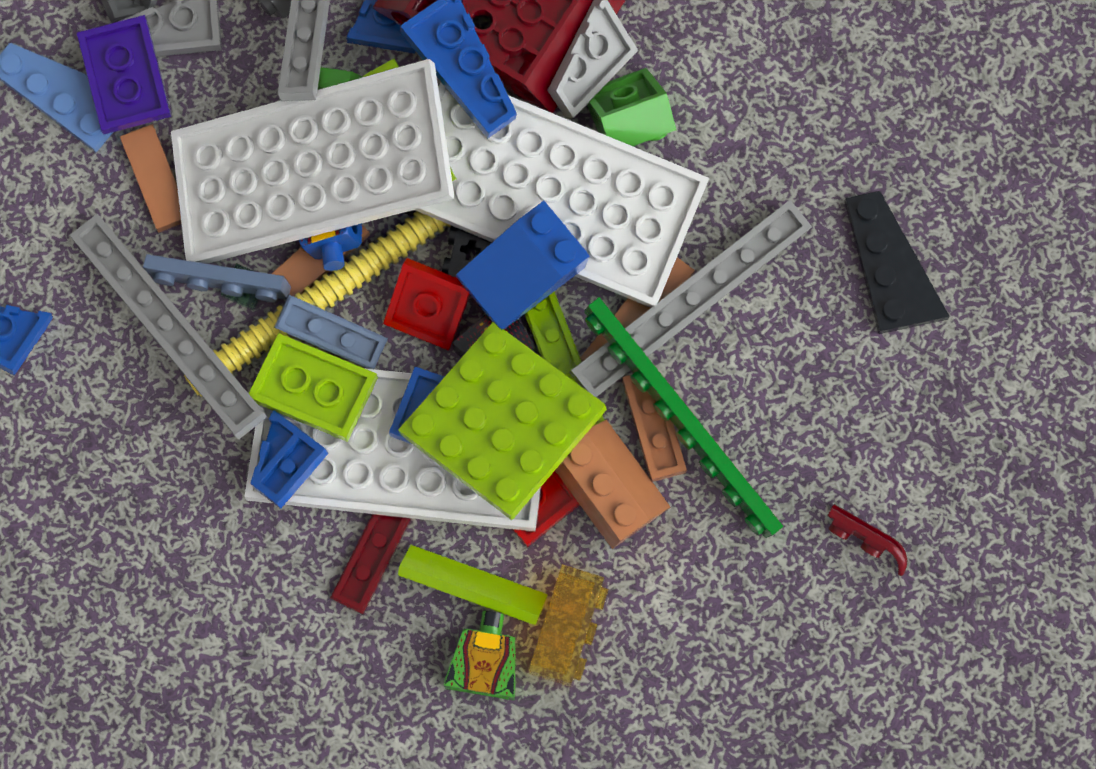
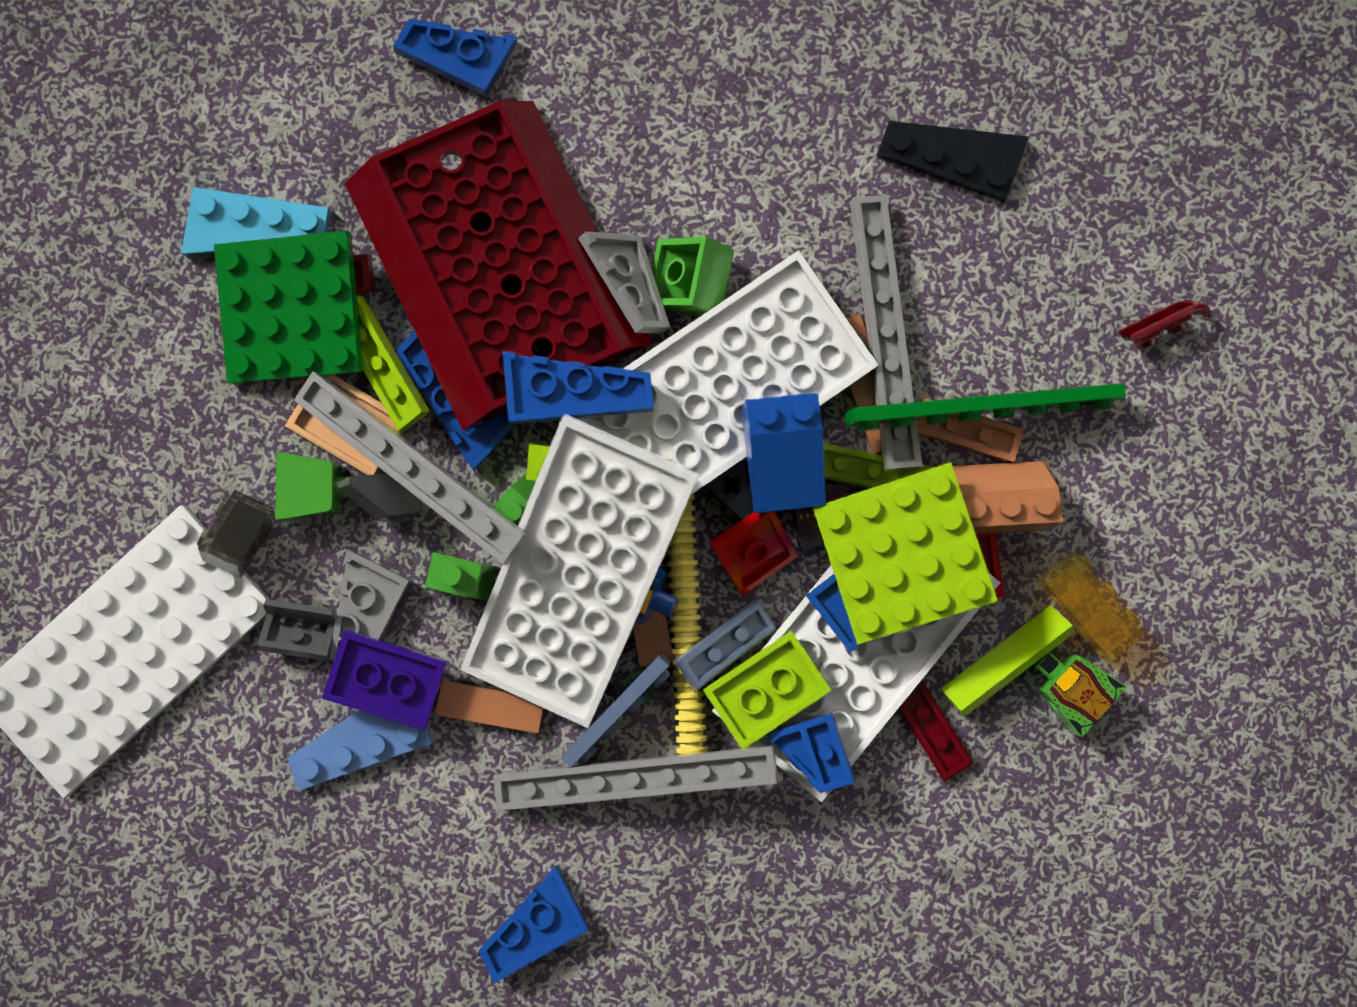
camera: 60 degrees left, 10 degrees up
(247, 76) = (460, 576): none -> bright green torso

